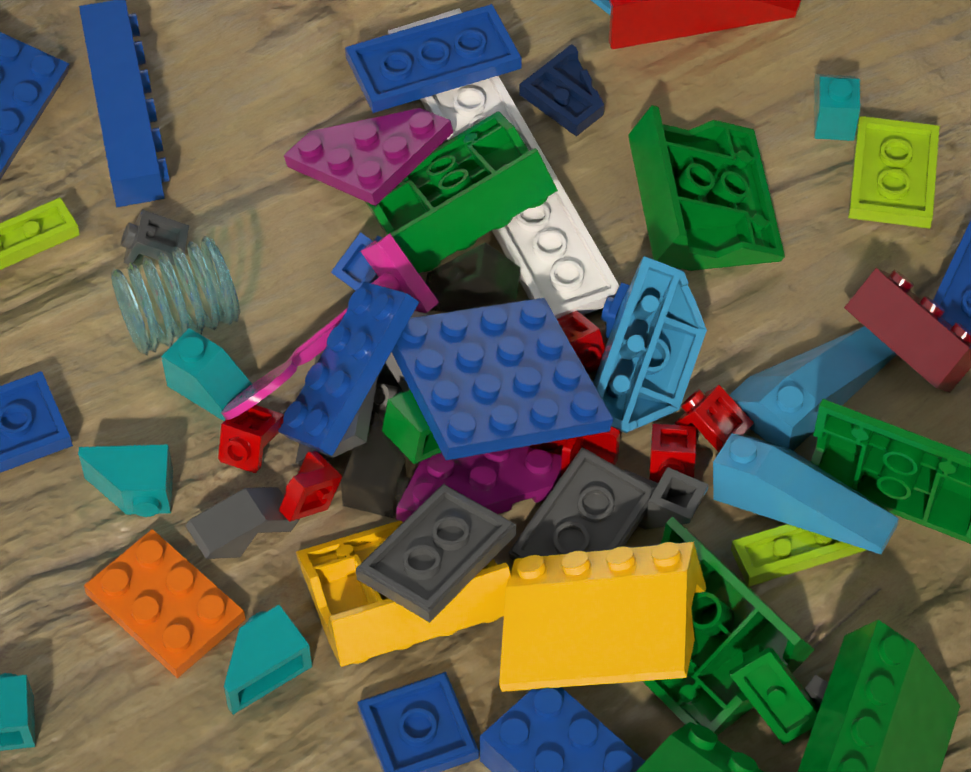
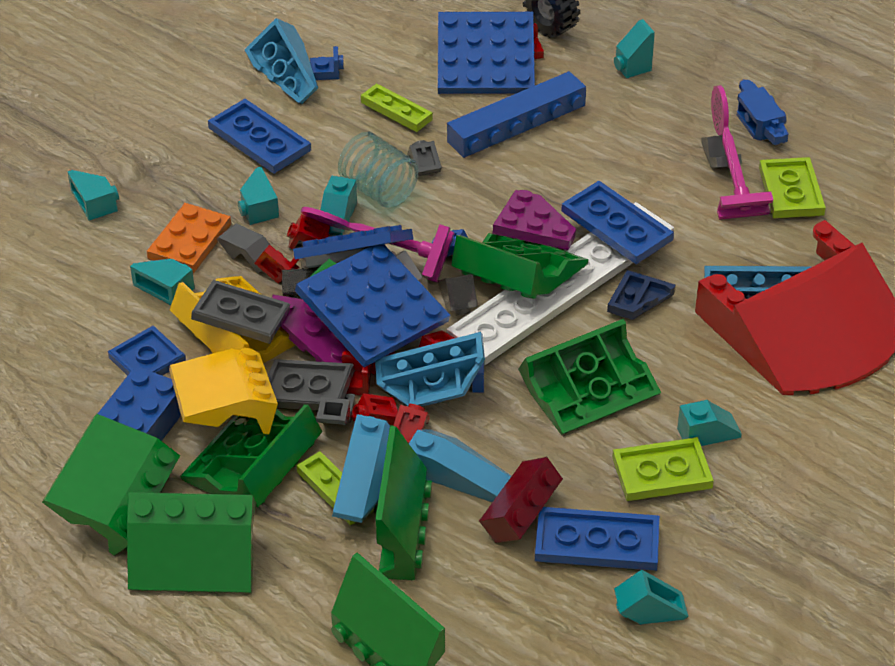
camera: 70 degrees right, 10 degrees down
(775, 693) = (214, 476): green plate -> none

